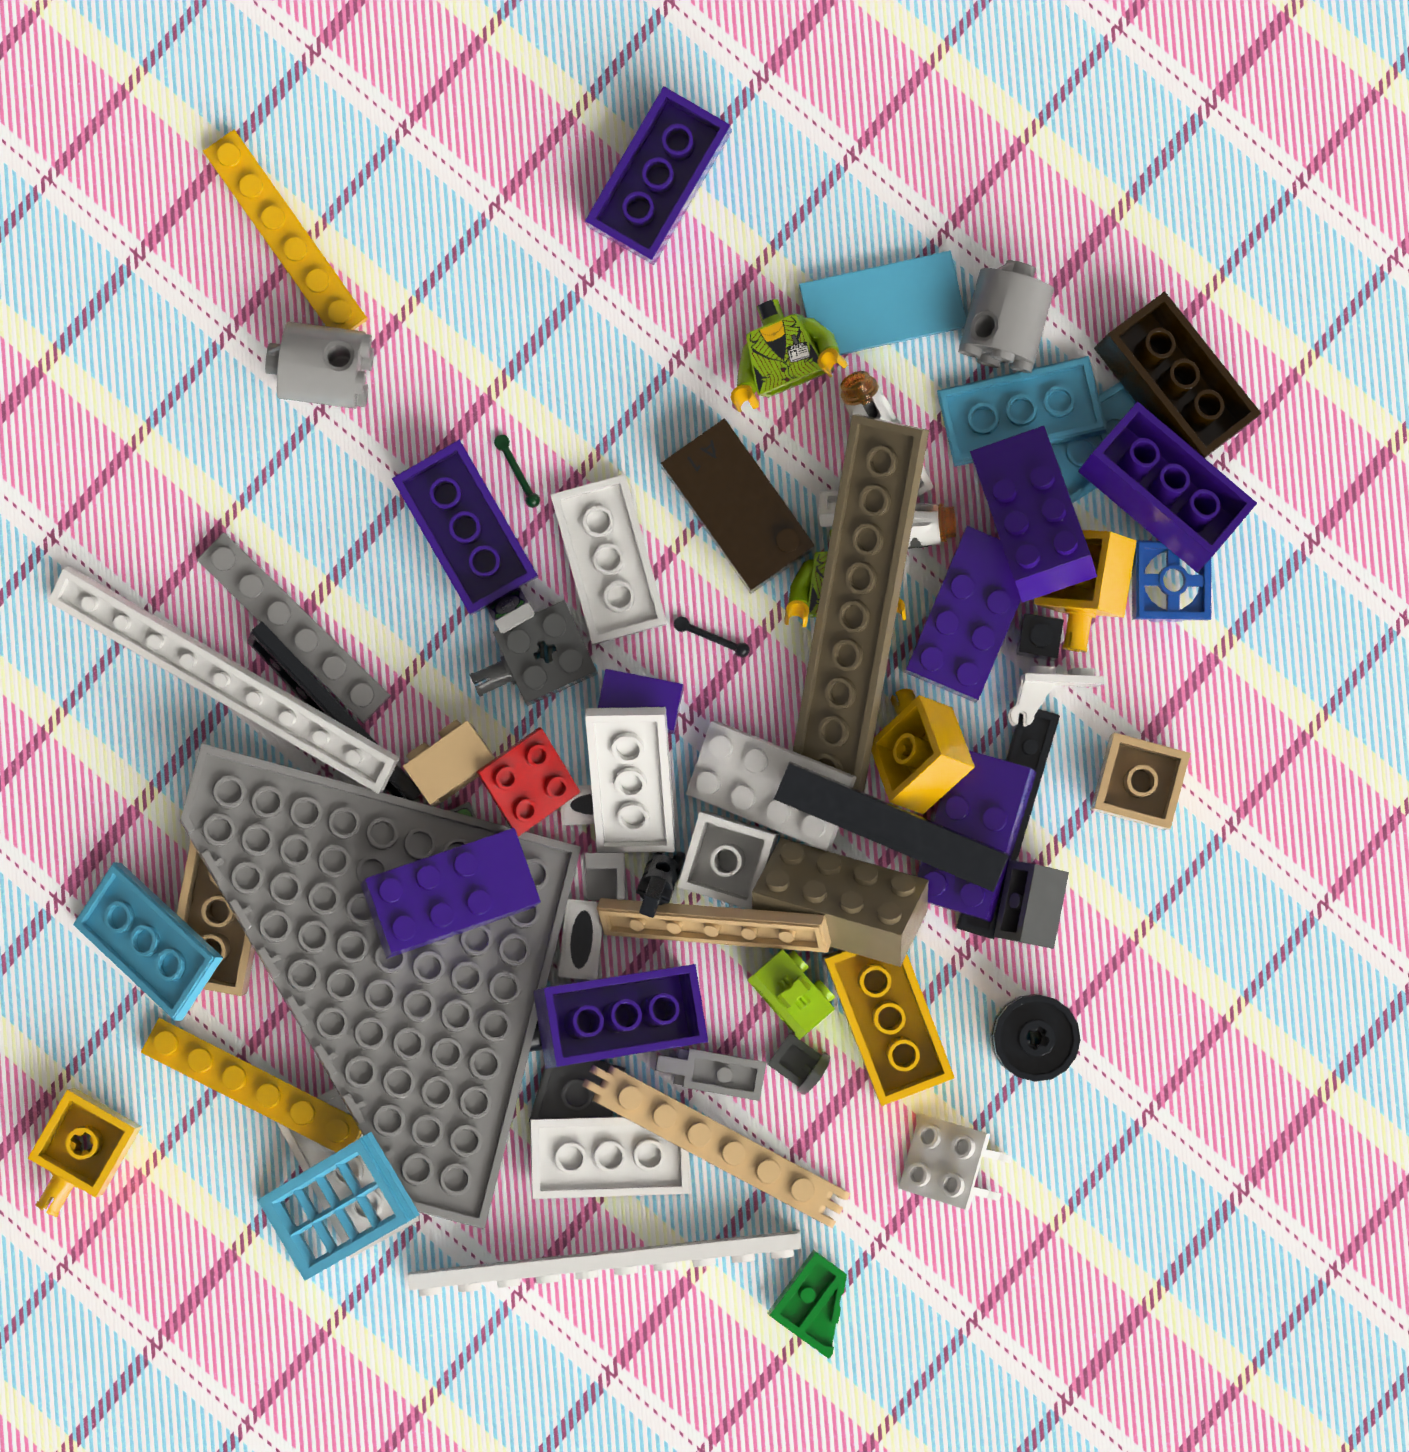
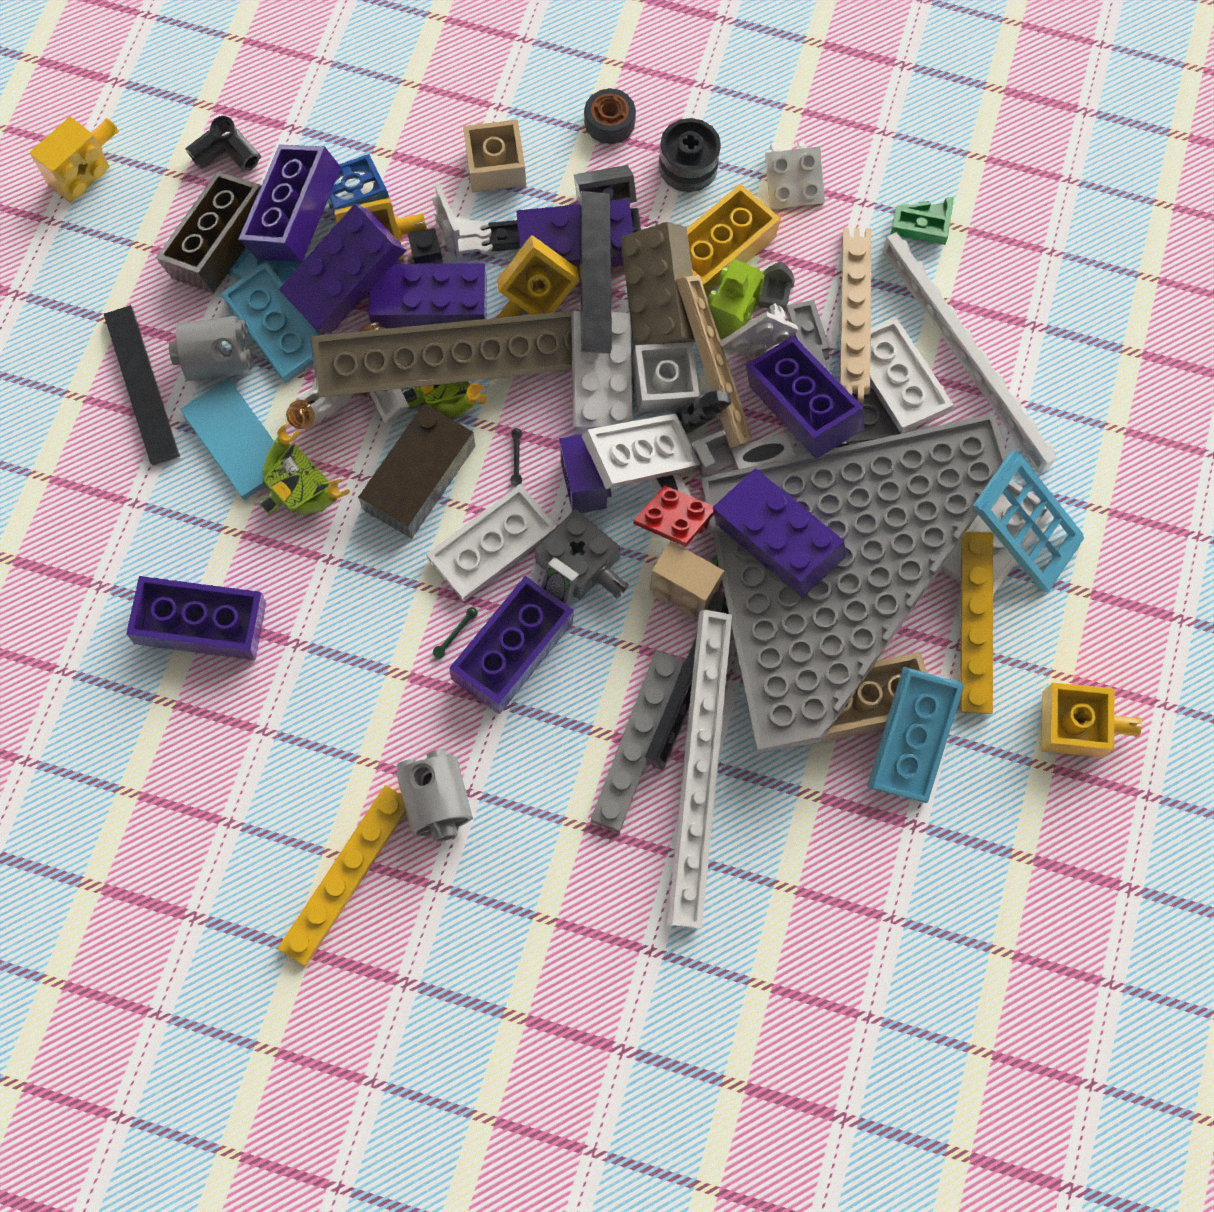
camera: 120 degrees left, 15 degrees down
(731, 999) = (760, 333): none -> white plate
(1009, 216) = (141, 385): none -> black tile
(1123, 963) = (598, 111): none -> wheel
(1319, 424) = (213, 144): none -> black piece
(1364, 240) = (73, 156): none -> yellow brick

